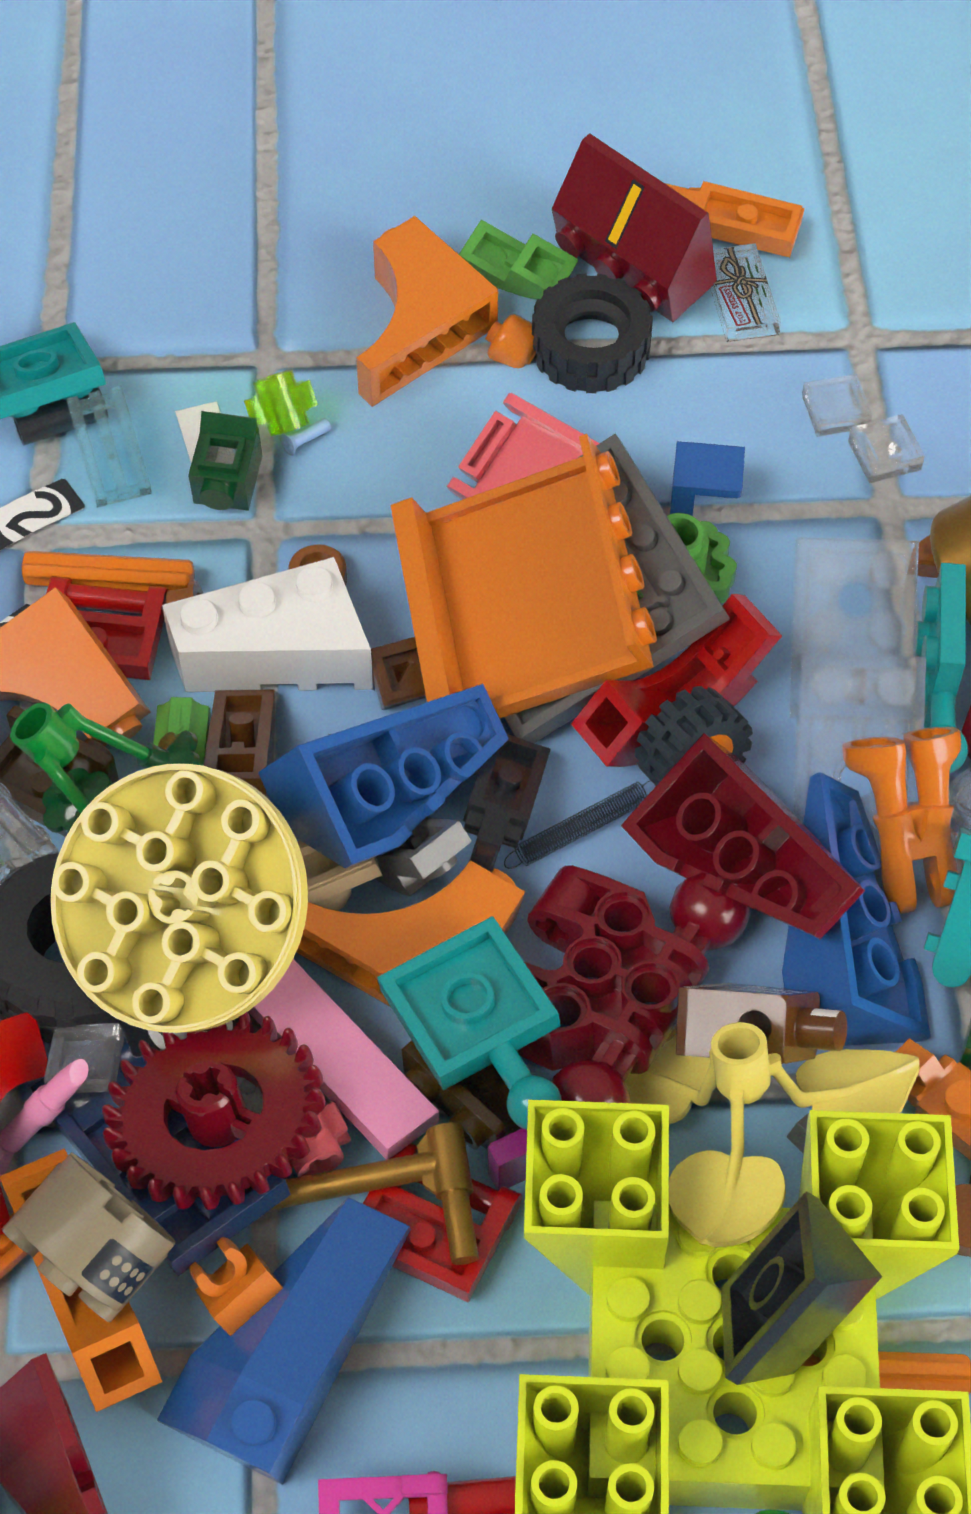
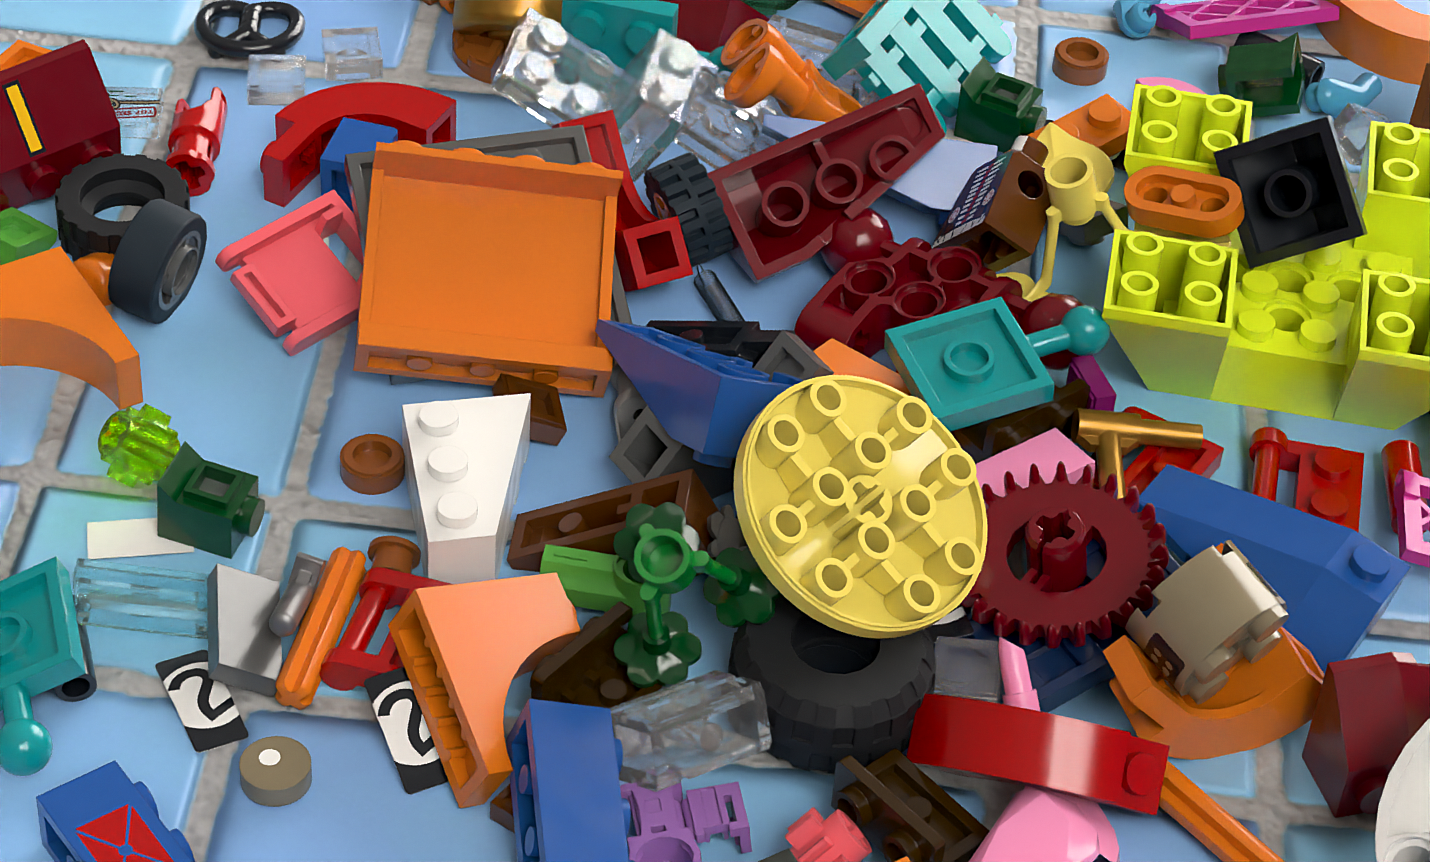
camera: 85 degrees left, 15 degrees down
(90, 517) = (239, 634): none -> tile
(140, 542) = (297, 594): none -> flat silver bar
(439, 1414) = (1325, 479): none -> red plate
(502, 355) = (157, 260): none -> black wheel
(712, 359) = (197, 140): none -> red piece
(747, 1187) = (1184, 201): none -> orange plate
(774, 468) = (311, 121): none -> red arch
(905, 368) = (247, 38): none -> black piece

